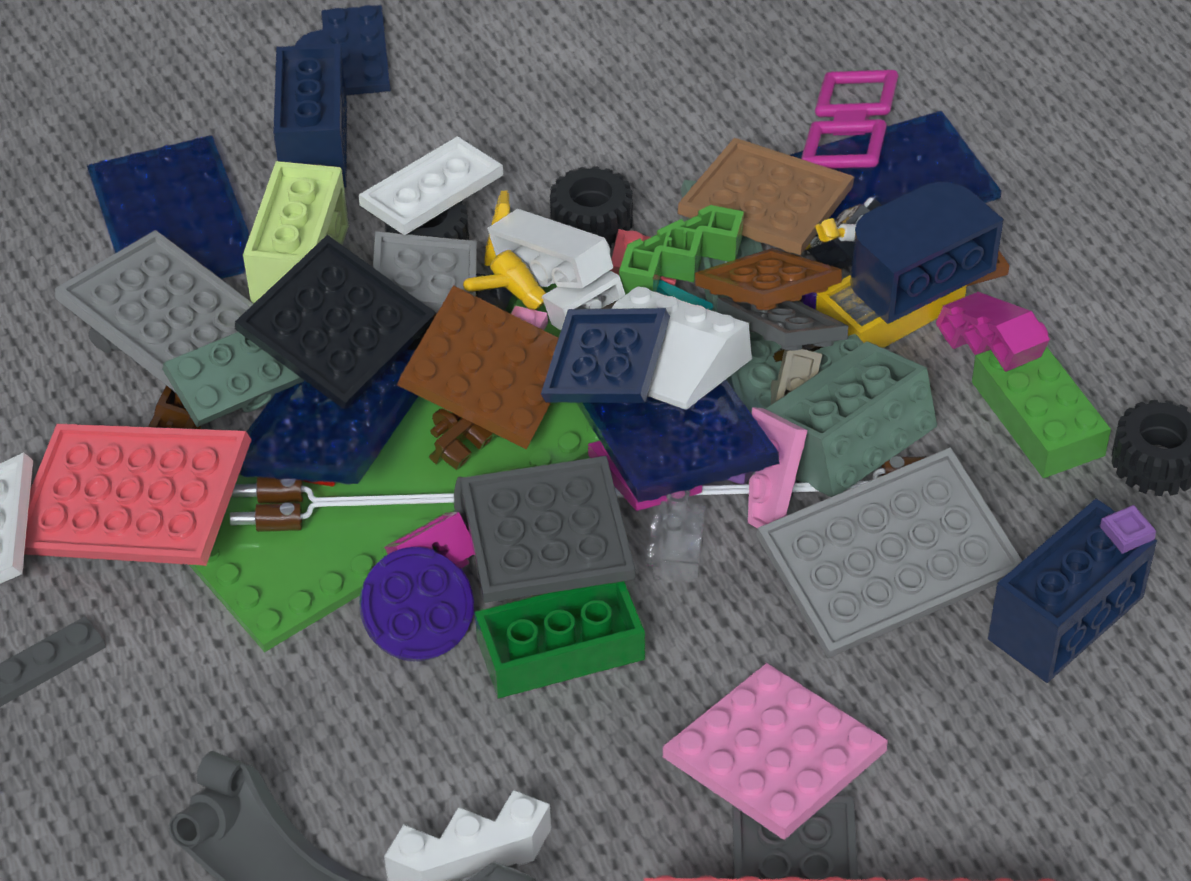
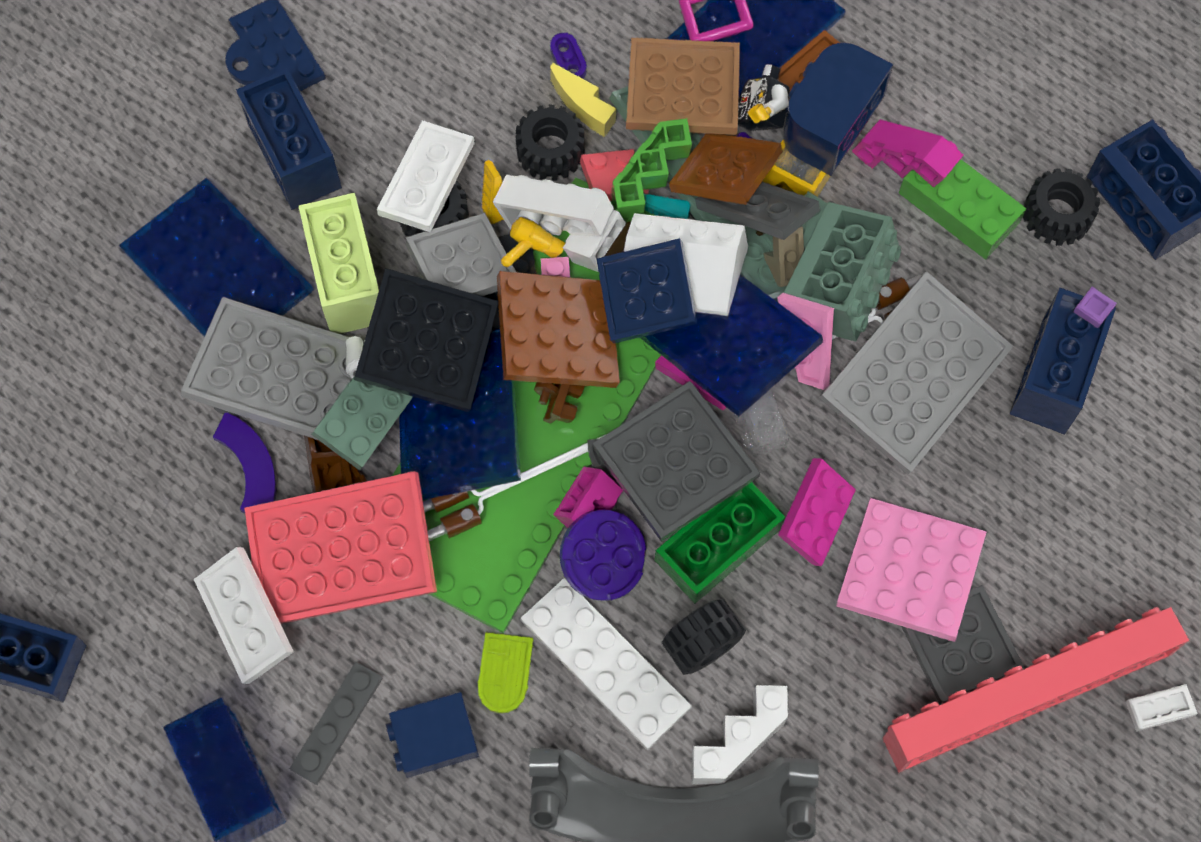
camera: 25 degrees left, 20 degrees up
(101, 387) = (254, 458): none -> dark purple tile
(122, 715) = (432, 735): none -> dark blue brick
(242, 688) = (504, 671): none -> lime window
(361, 722) = (606, 664): none -> white plate
(480, 718) = (703, 636): none -> black tyre
(653, 185) = (583, 100): none -> light yellow slope
(659, 143) = (572, 57): none -> dark purple plate
(690, 648) = (817, 512): none -> dark pink plate

